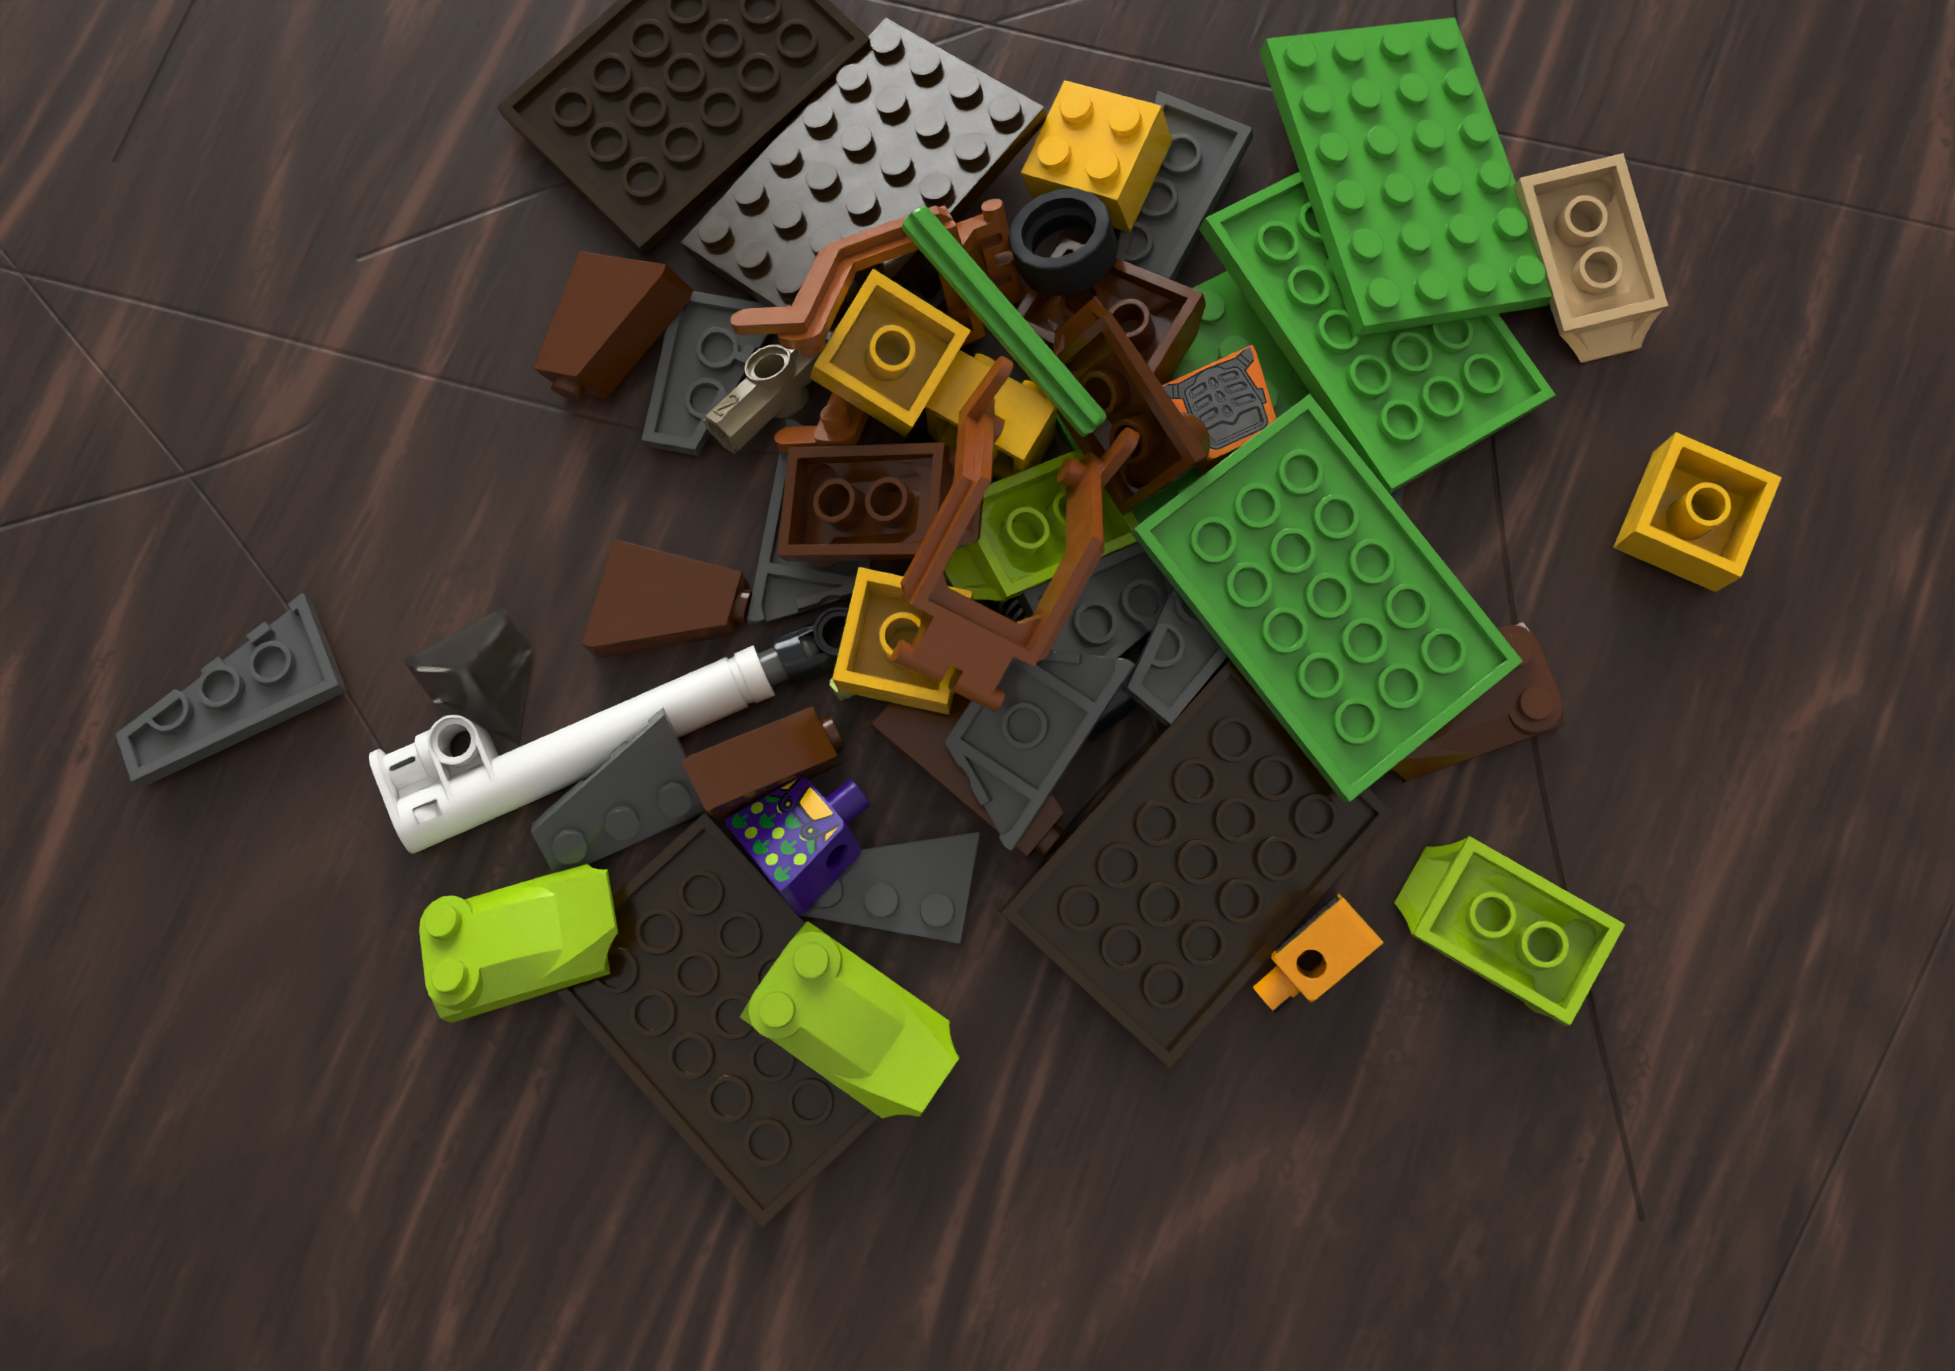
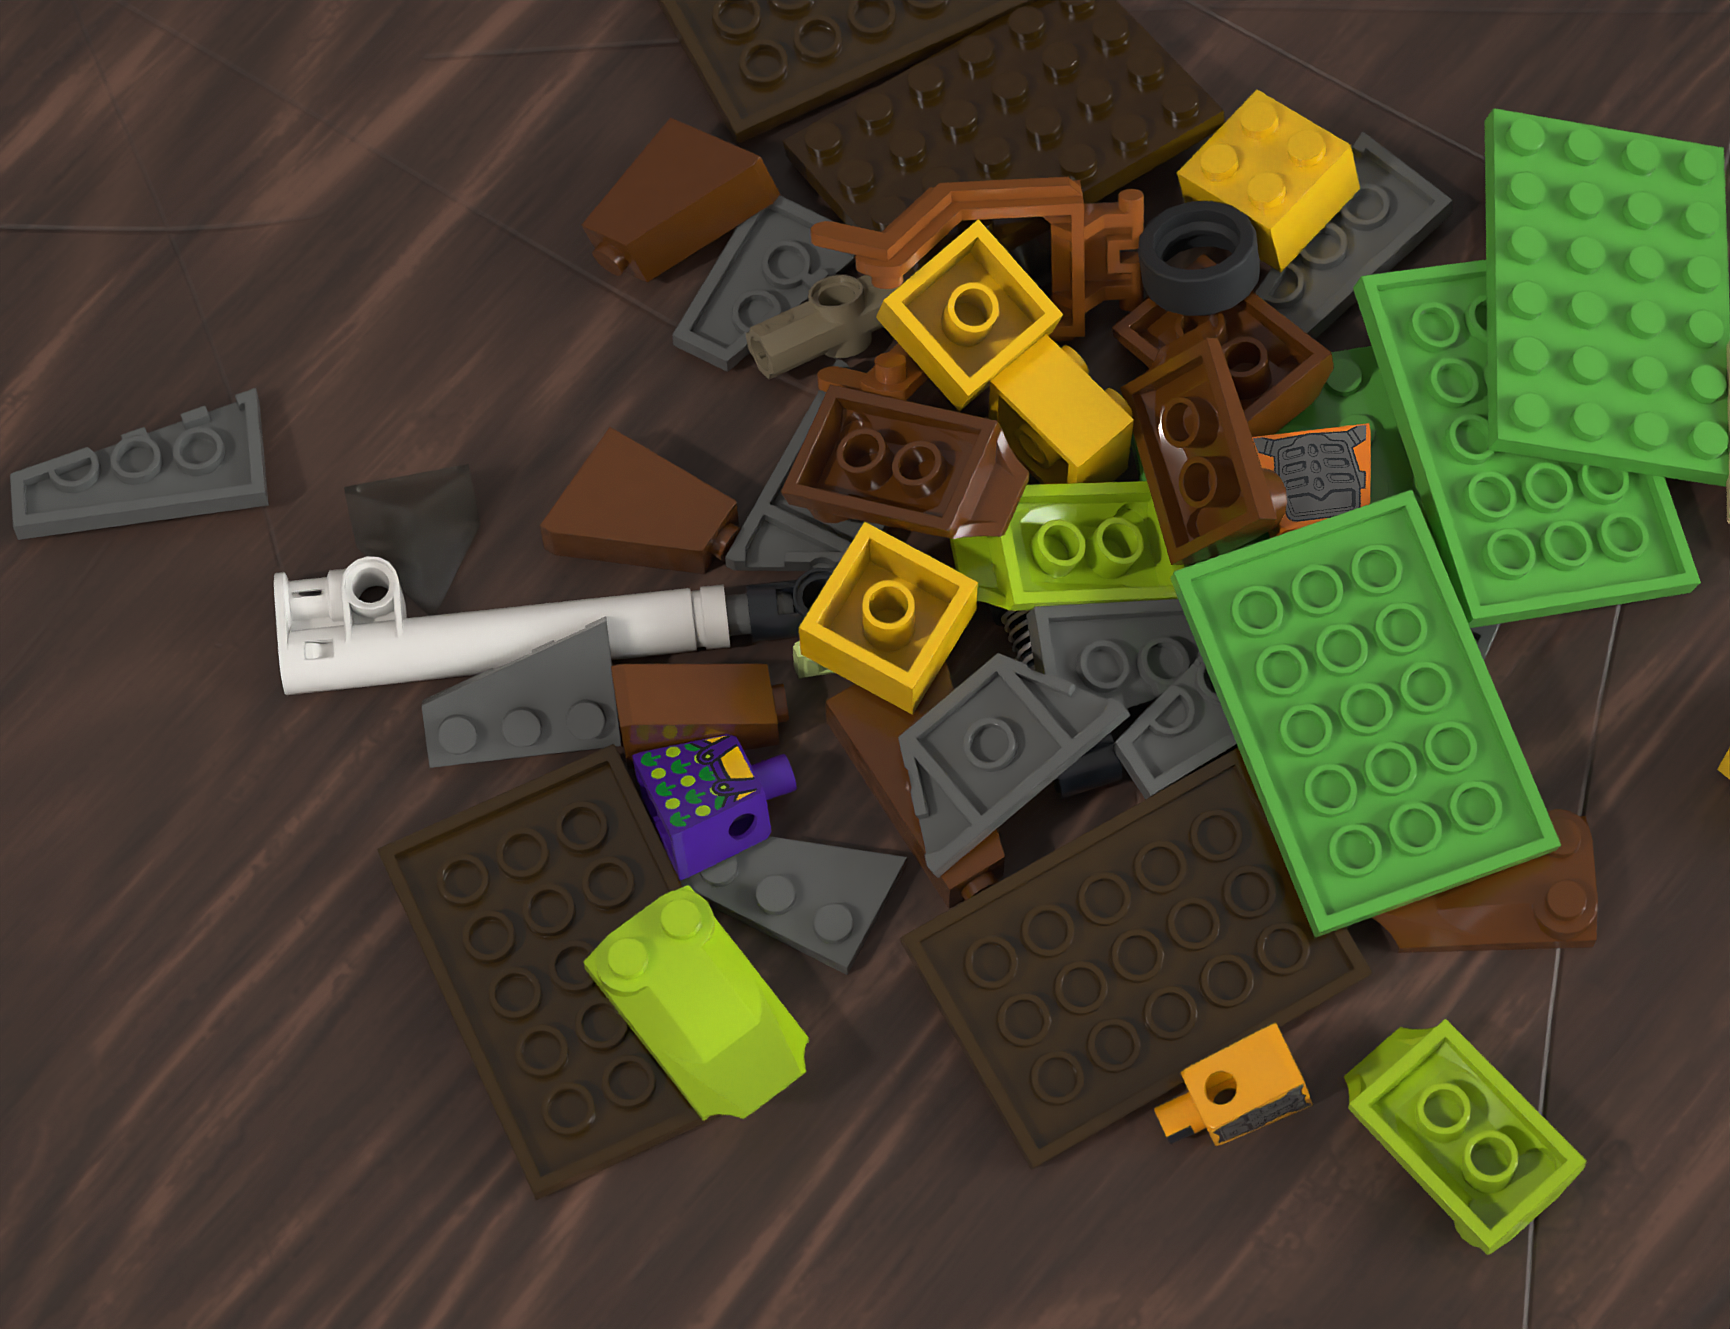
camera: 15 degrees right, 10 degrees down
(517, 941) = (370, 815): lime slope -> none
(964, 631) = (956, 615): dark orange piece -> none
(1003, 321) = (1102, 317): bright green axle -> none

